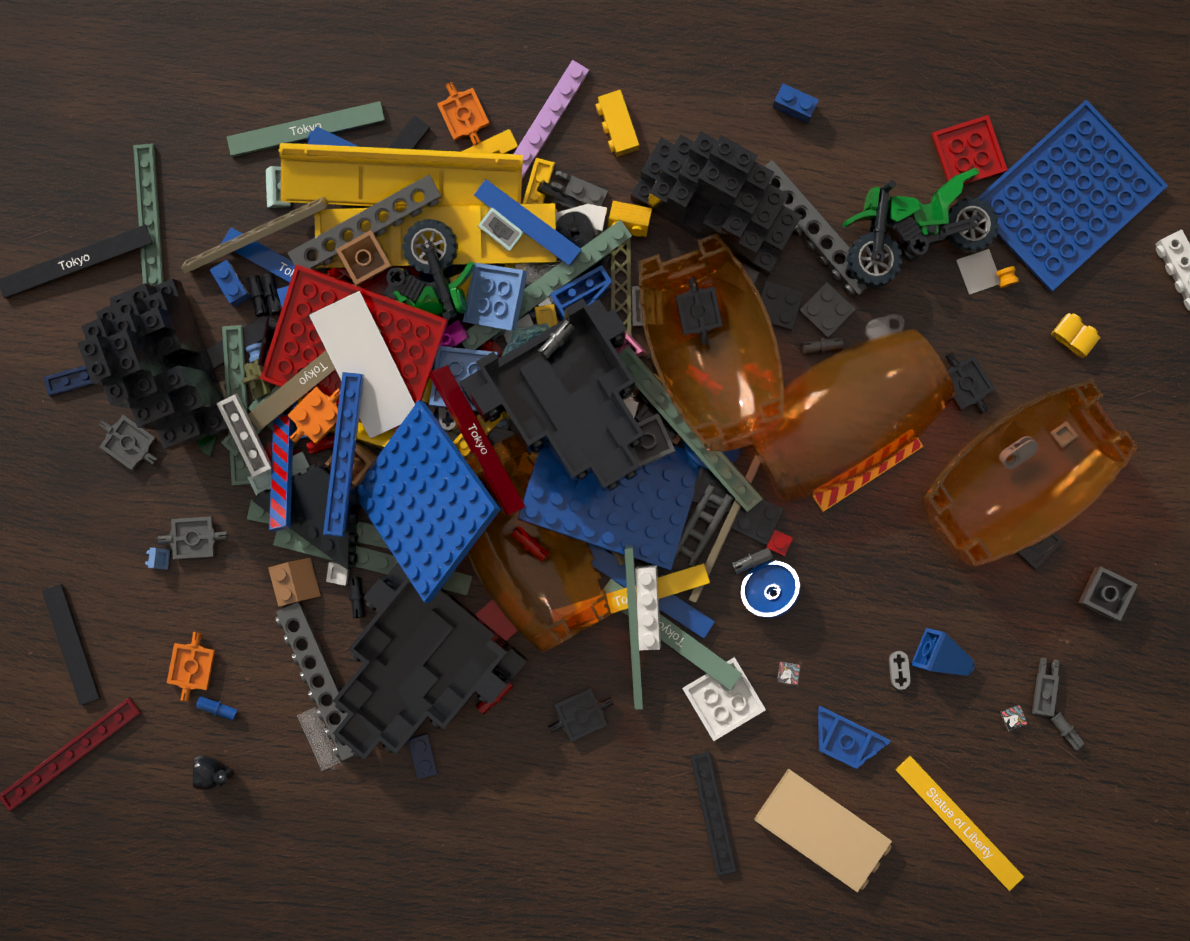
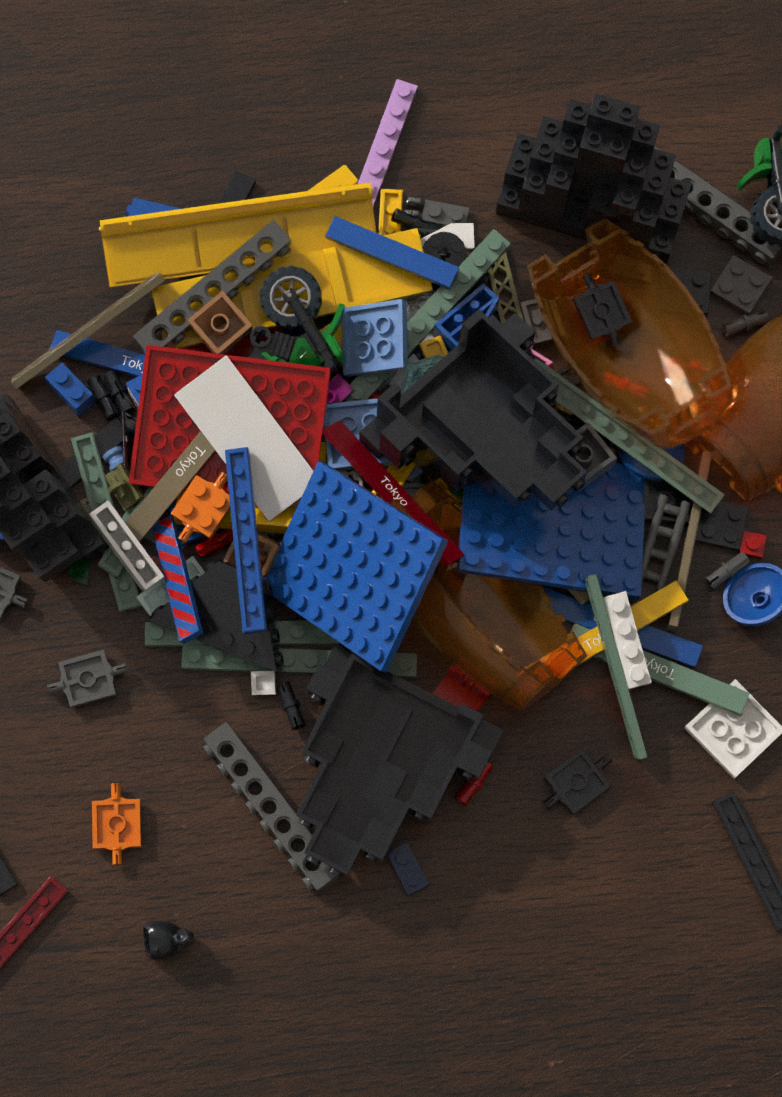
camera: 20 degrees left, 10 degrees down
(158, 558) = (52, 710): medium blue tile -> none
(216, 708) = (156, 865): blue axle -> none
(273, 188) = (97, 278): light aqua slope -> none
(294, 582) = (215, 702): medium nougat slope -> none
(300, 129) = (89, 220): sand green tile -> none
(317, 738) = (282, 875): clear plate -> none
(463, 114) = (289, 158): orange plate -> none
(500, 229) = (363, 265): slope -> none
(530, 544) = (475, 602): red pin -> none
(556, 339) = (457, 364): dark grey pin -> none
(617, 123) = (462, 135): yellow brick -> none
(634, 217) = (508, 225): yellow brick -> none
(795, 103) = (651, 75): blue brick -> none

